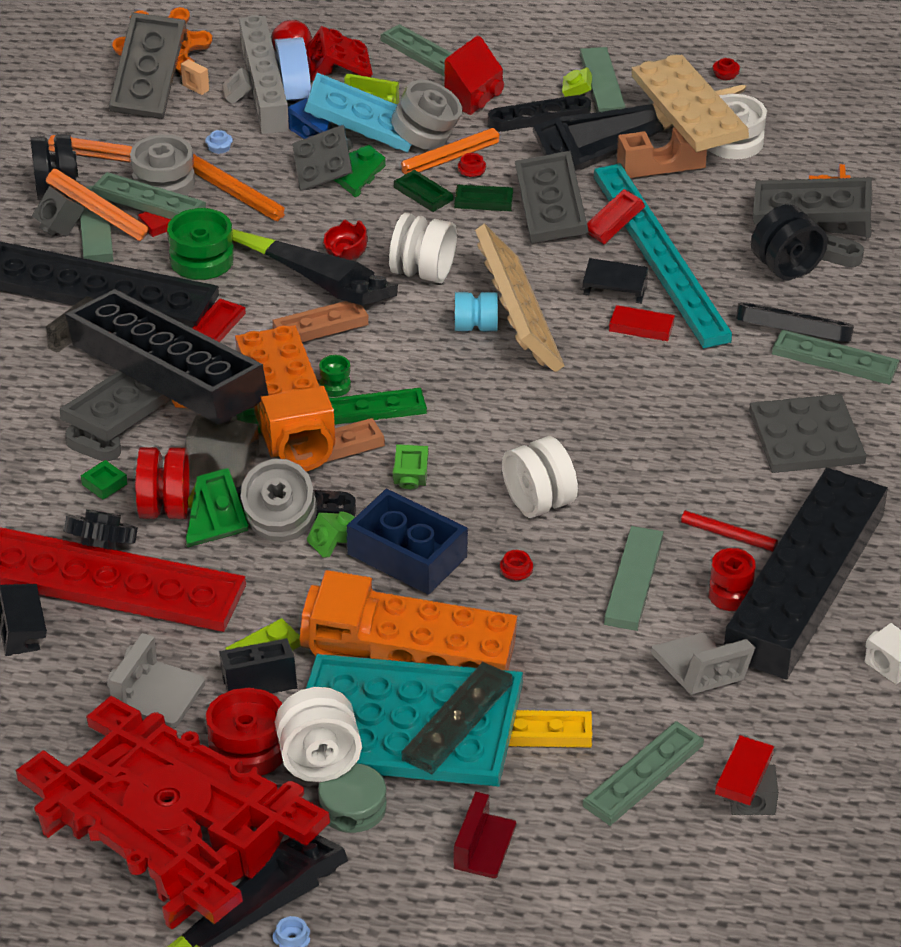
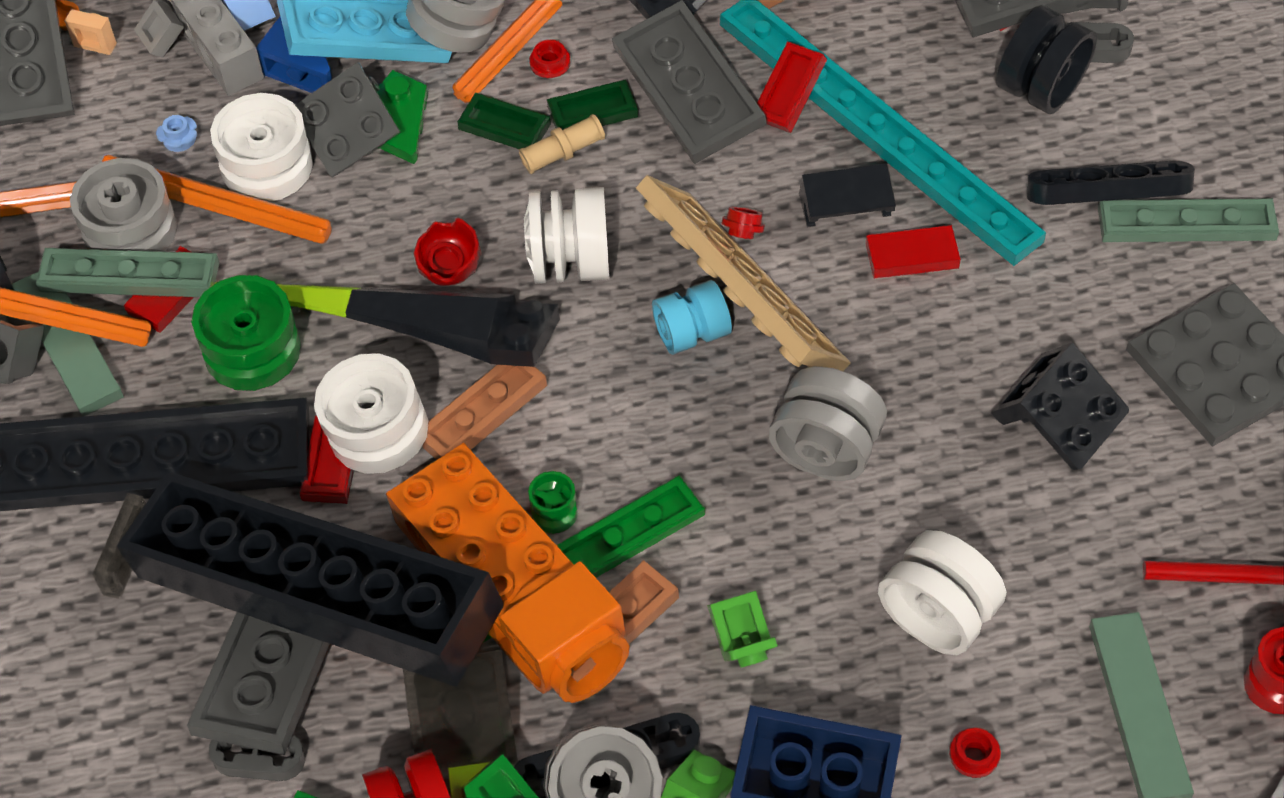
camera: 20 degrees left, 15 degrees up
(249, 296) = (371, 413): none -> white wheel
(264, 157) = (262, 146): none -> white wheel
(452, 208) = (562, 144): none -> tan pin
(523, 379) = (828, 423): none -> light grey wheel
(541, 277) = (743, 222): none -> red plate
(686, 421) = (1065, 404): none -> black bracket

